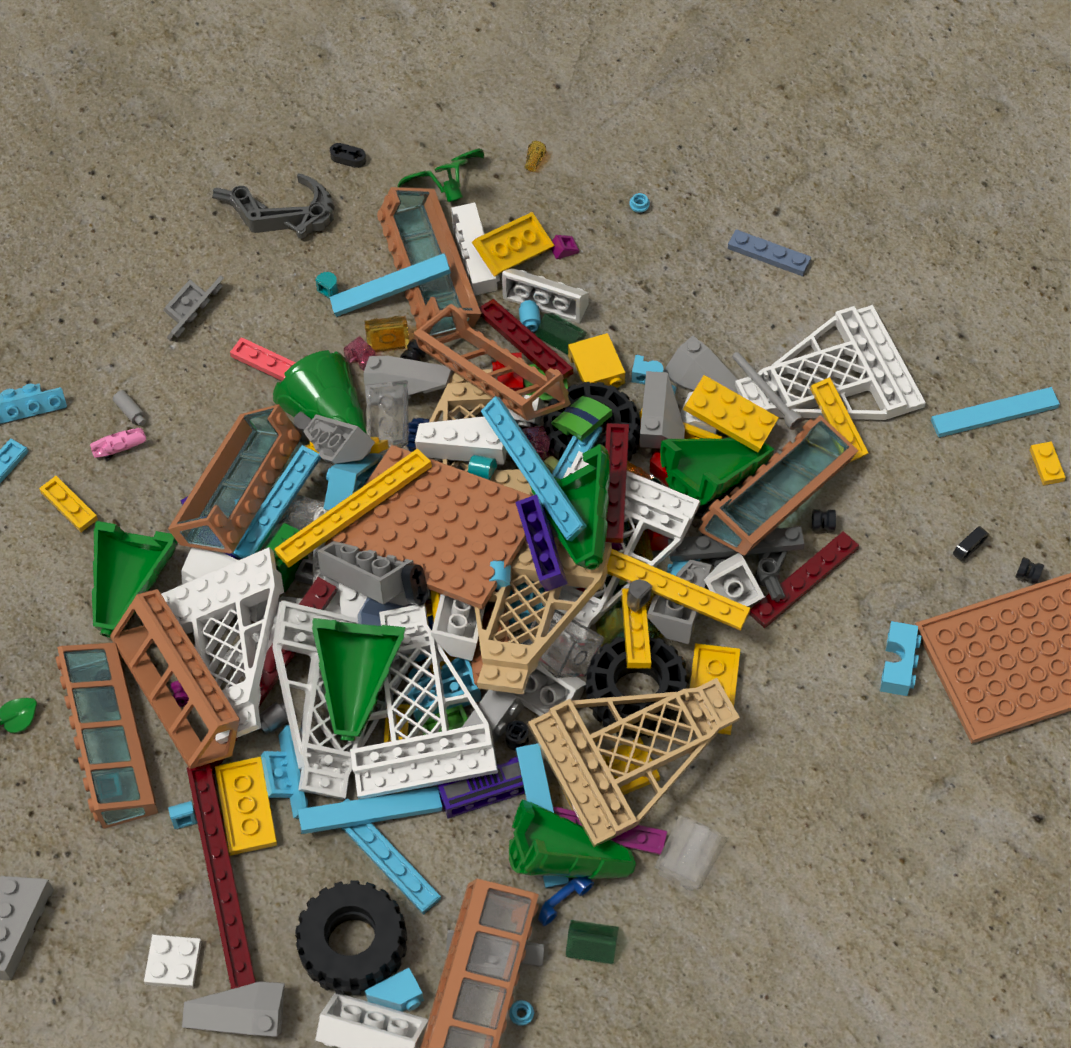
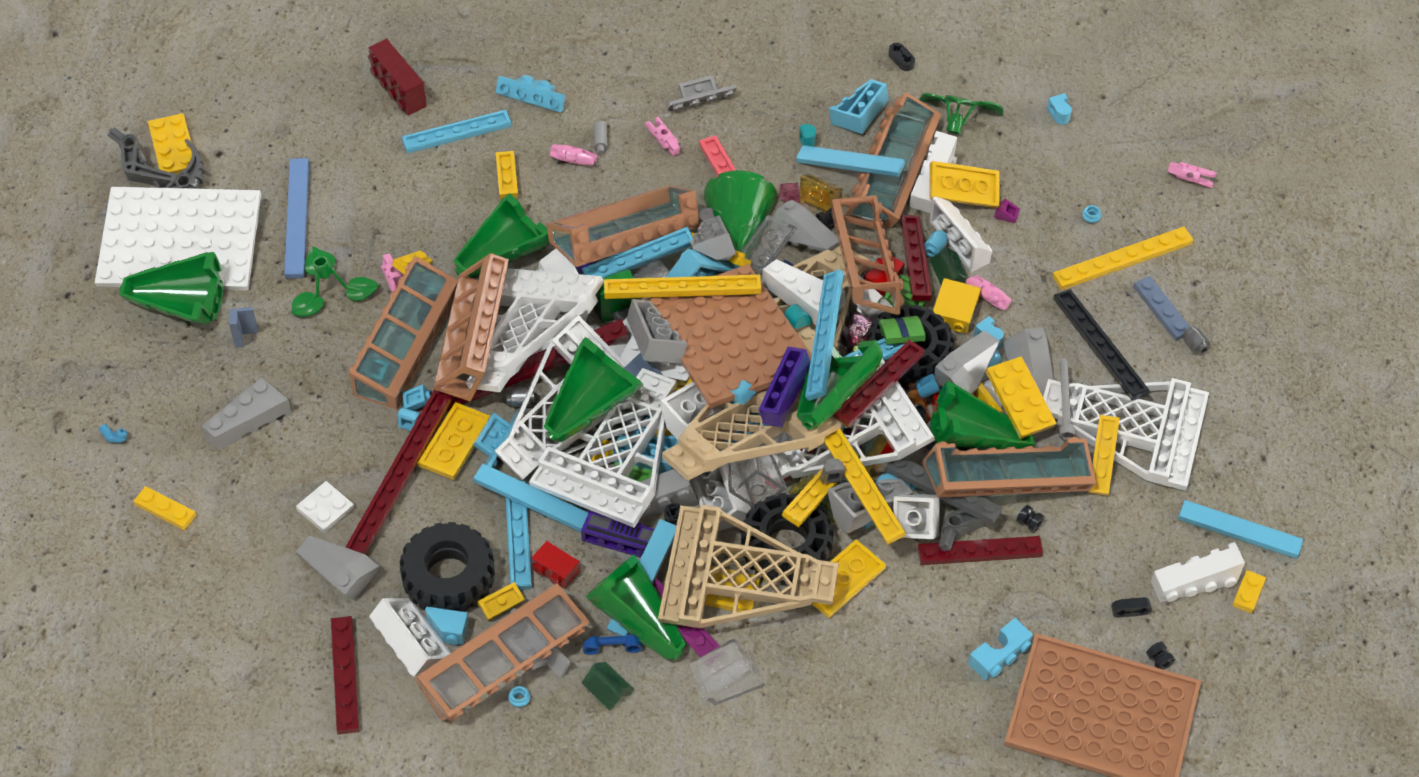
camera: 35 degrees right, 5 degrees down
(39, 679) = (391, 273): none -> bright pink hinge
(46, 655) = (401, 262): none -> yellow plate
(172, 788) = (416, 397): none -> medium azure bracket
(190, 369) = (664, 136): none -> bright pink hinge
(263, 219) = (827, 81): dark grey piece -> none
(355, 227) = (860, 108): none -> medium azure wedge
(414, 584) = (679, 361): black beam -> none
(426, 932) = (501, 601): none -> yellow plate
(447, 860) = (555, 565): none -> red brick
(531, 121) = (1059, 108): none -> medium azure leg
(535, 154) = (1041, 134): clear yellow cone -> none
(616, 331) = (990, 292): none -> bright pink hinge
(641, 456) = (927, 386): none -> dark azure brick
(692, 112) = (1183, 172): none -> bright pink hinge
(697, 228) = (1122, 258): none -> yellow plate
(750, 319) = (1101, 345): none -> black tile
(822, 264) = (1196, 340): none -> flat silver brick
(1002, 476) = (1199, 574): none -> white wedge

